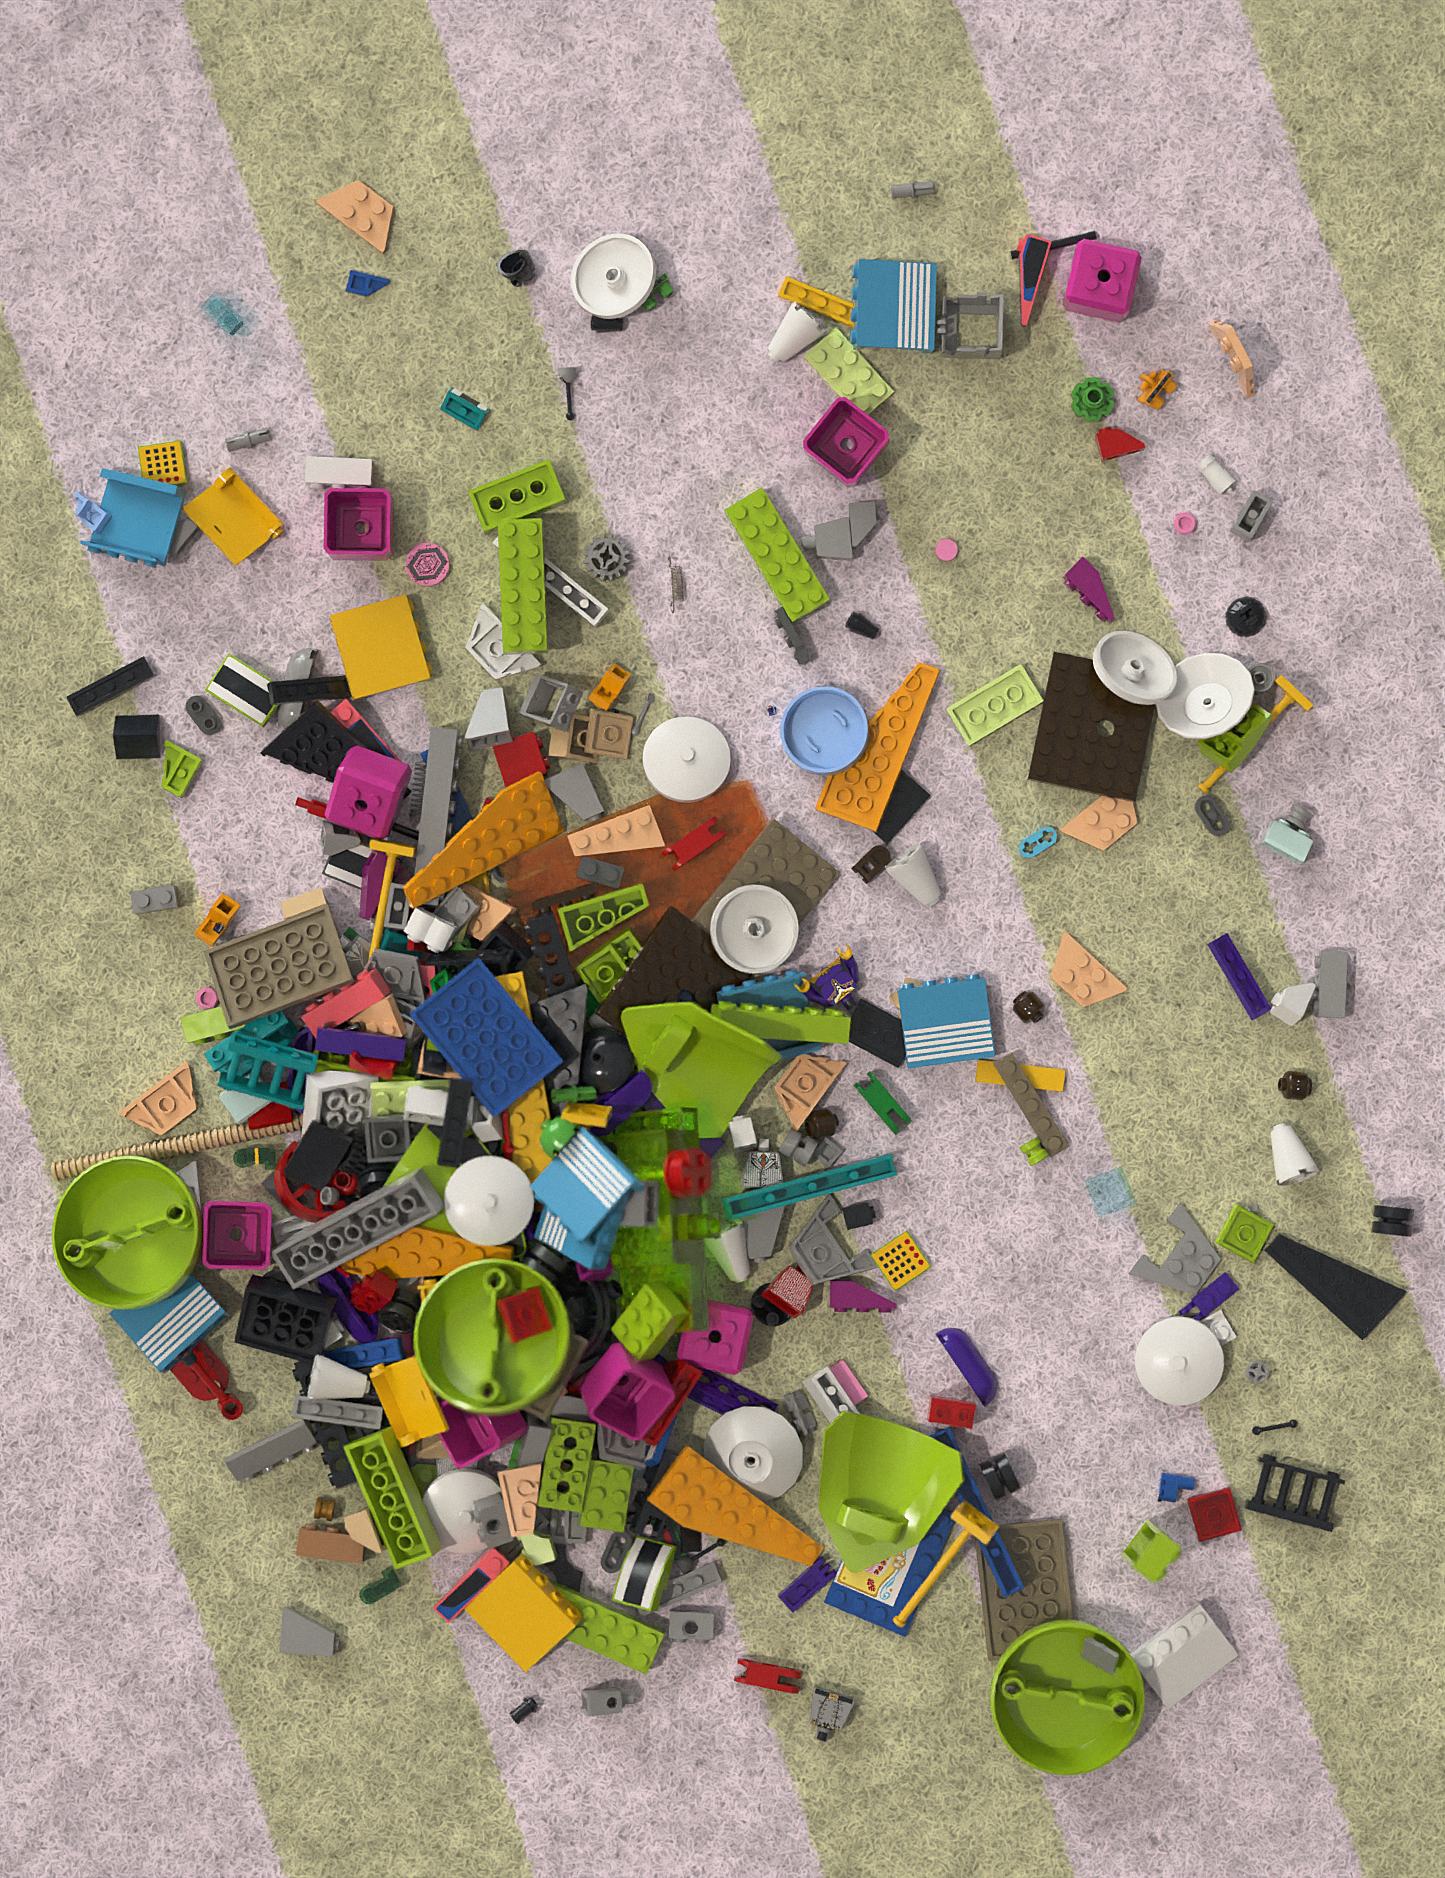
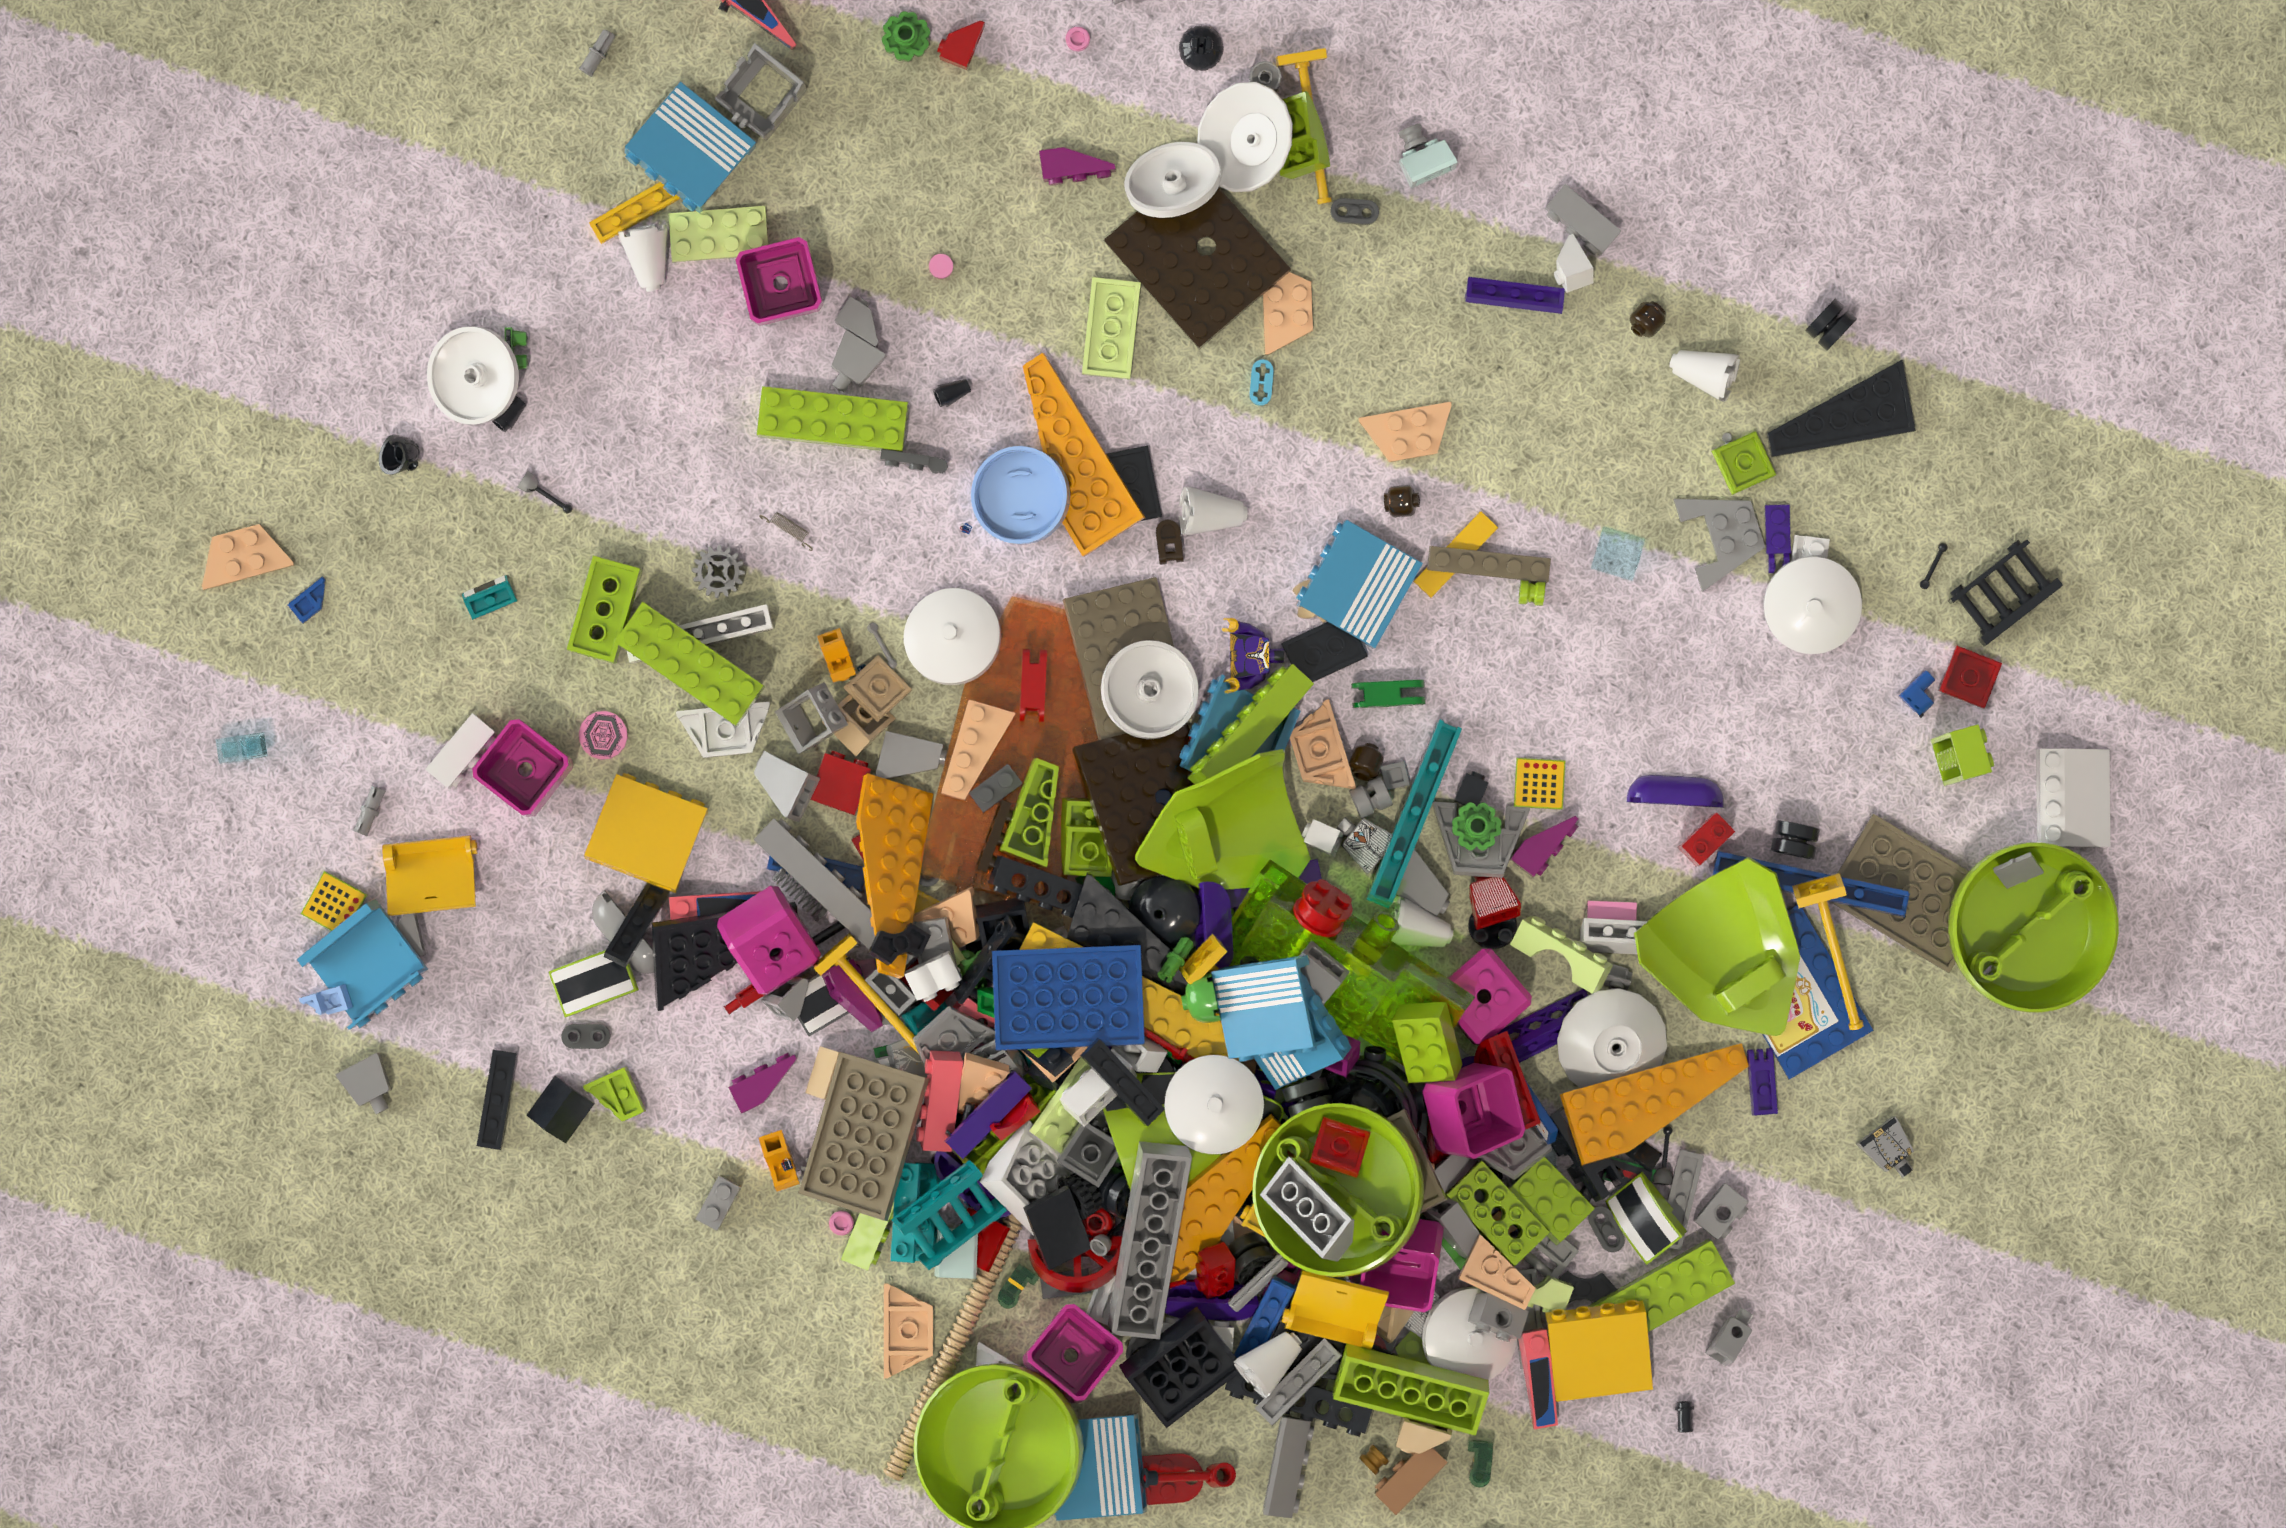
camera: 60 degrees left, 0 degrees up
(53, 585) = (367, 1082): none -> light grey torso
(257, 865) = (757, 1088): none -> magenta slope
(384, 1328) = (1257, 1283): none -> light grey axle
(426, 881) = (889, 946): none -> black tile
(461, 1328) = (1310, 1210): none -> light grey slope
(768, 1676) = (1816, 1177): red piece -> none
(792, 1396) = (1587, 968): none -> yellowish green arch
(834, 1238) = (1476, 826): none -> bright green plant
(1261, 1372) = (1877, 542): light grey wheel -> none

